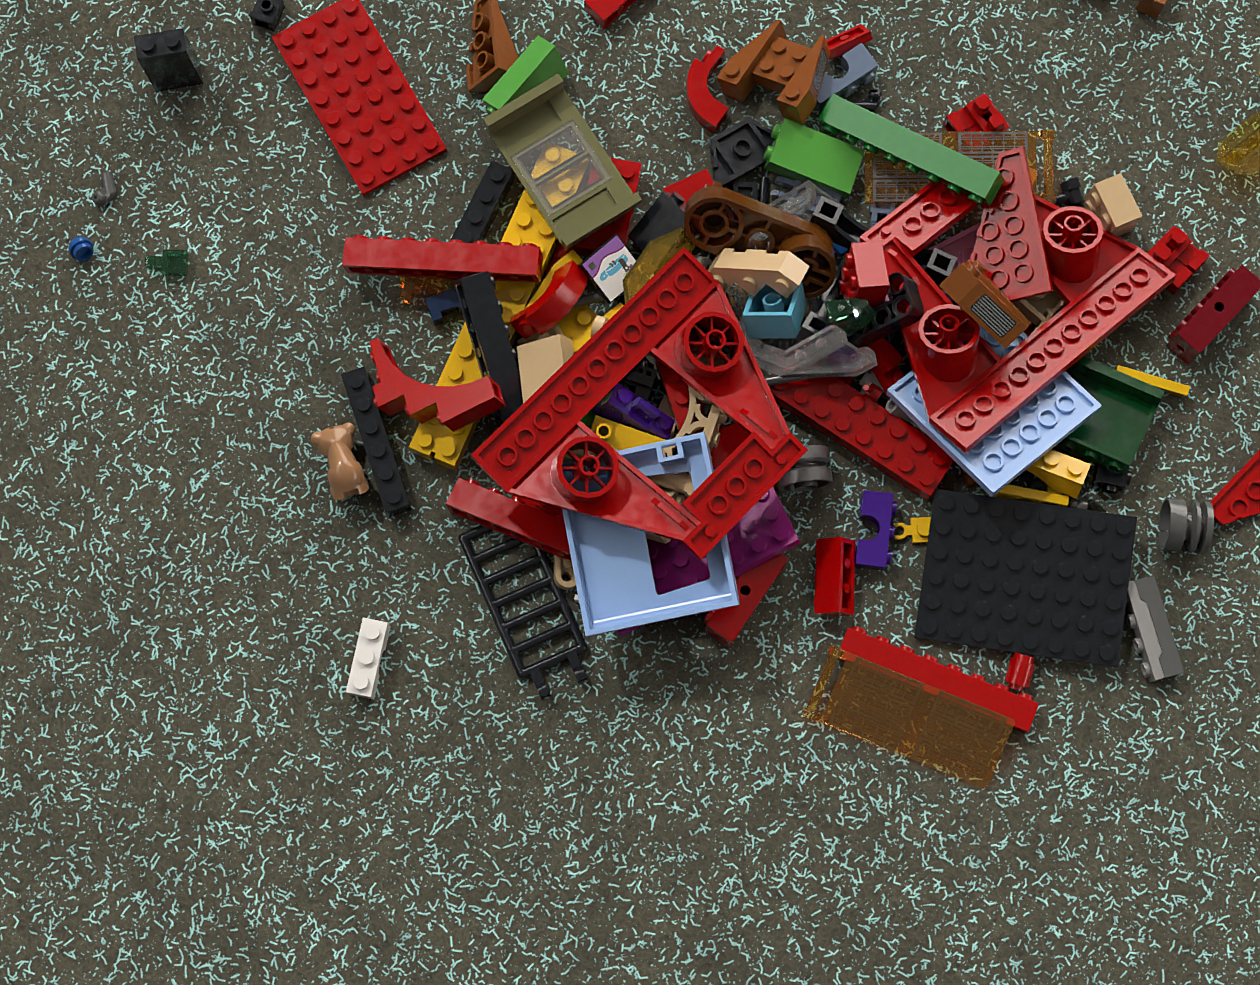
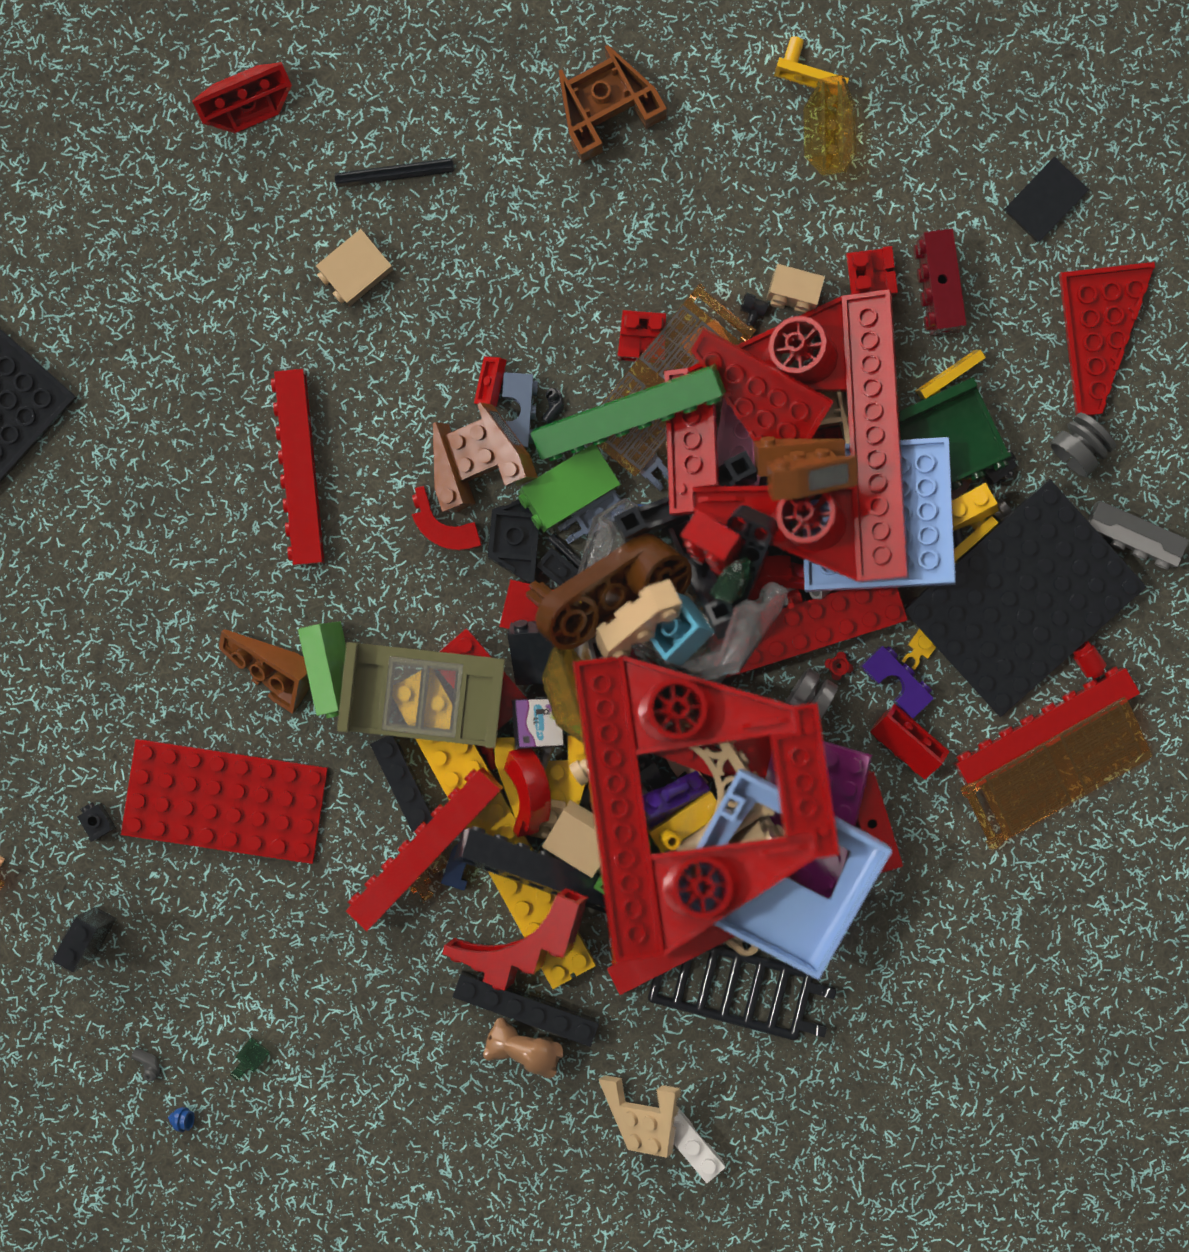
camera: 55 degrees left, 10 degrees up
(354, 606) = (642, 1126): none -> tan wing
(845, 470) = (840, 658): none -> red plate

